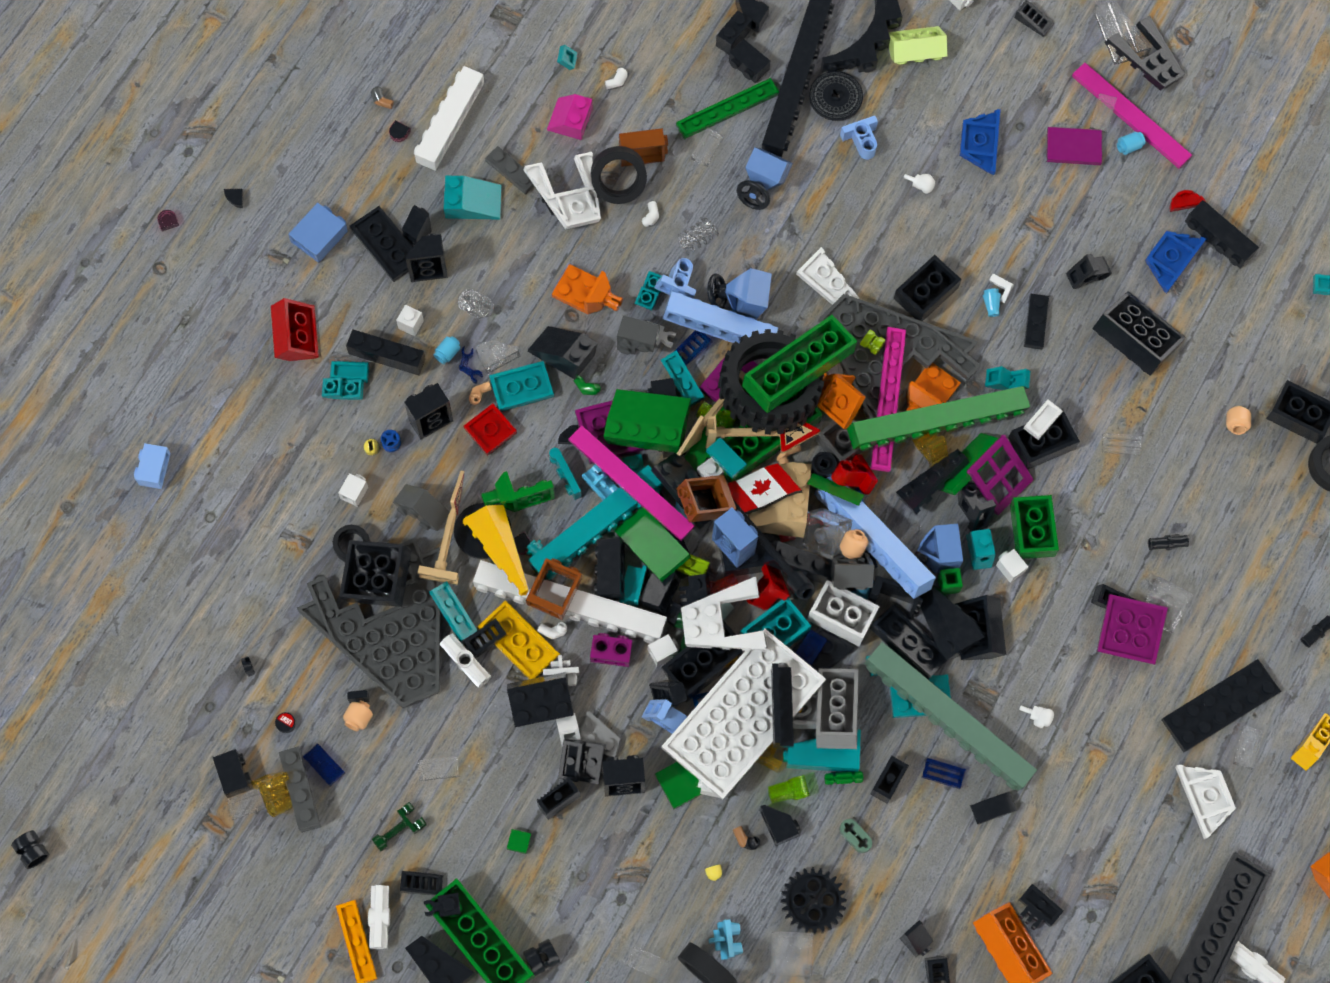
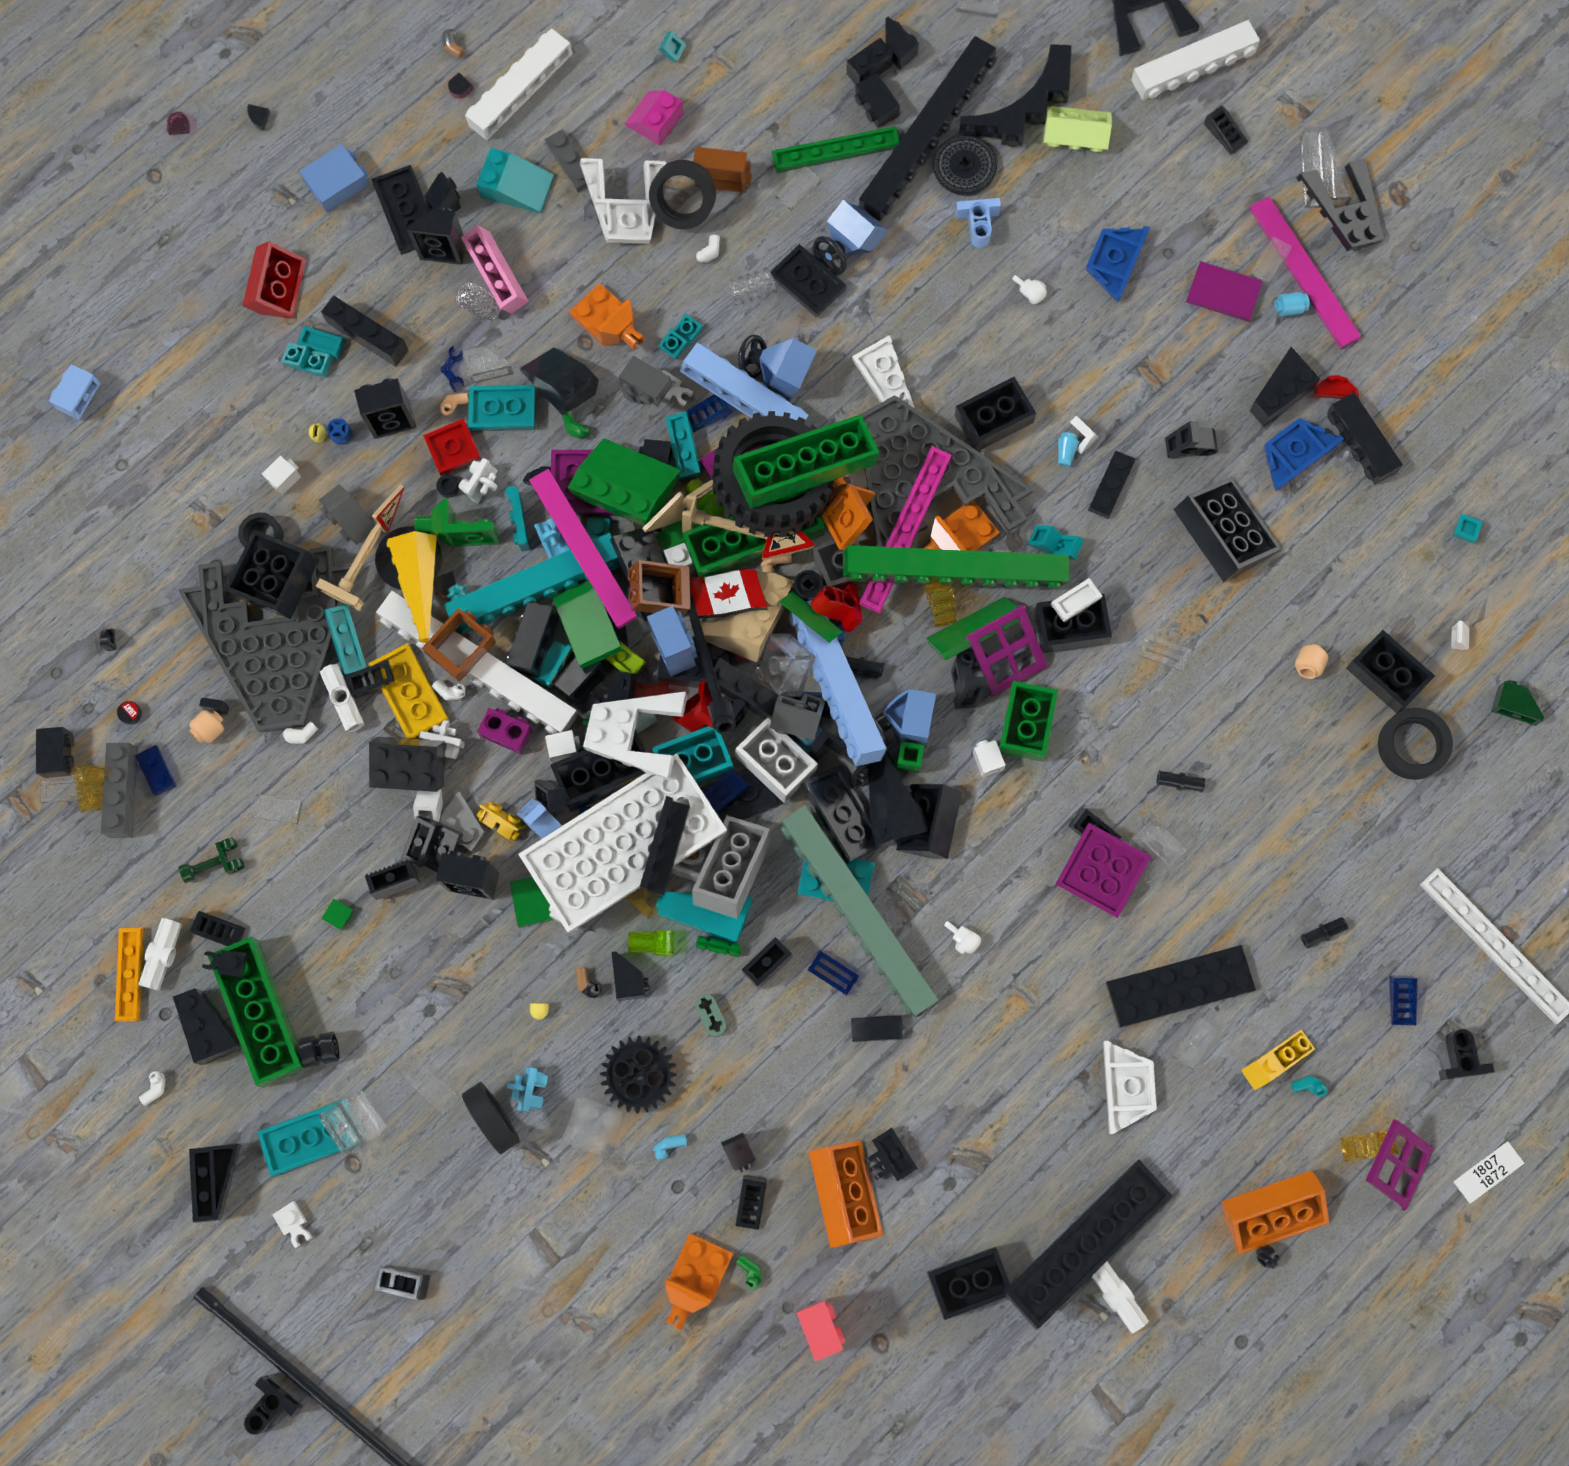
camera: 25 degrees right, 5 degrees up
(410, 320) = (402, 301): white brick -> none
(438, 702) = (297, 736): none -> white arm
(447, 350) = (432, 345): medium azure brick -> none
(480, 274) = (494, 269): none -> bright pink brick
(496, 462) = (447, 486): none -> black tile
(525, 451) = (480, 482): none -> white hips
(618, 80) = (722, 86): white arm -> none
(623, 722) = (508, 823): none -> yellow hinge
(677, 276) = (716, 328): light blue tile -> none
(726, 457) = (697, 547): teal tile -> none
(740, 219) = (808, 280): none -> black plate
(853, 544) = (807, 685): light nougat head -> none
(857, 948) = (668, 1142): none -> medium azure arm
(877, 343) = (908, 459): lime wheel -> none
(891, 518) = (865, 666): none -> black pin
(926, 484) = (929, 635): black wing -> none
(981, 546) = (958, 729): teal torso -> none
(1147, 209) = (1286, 386): none -> black wedge

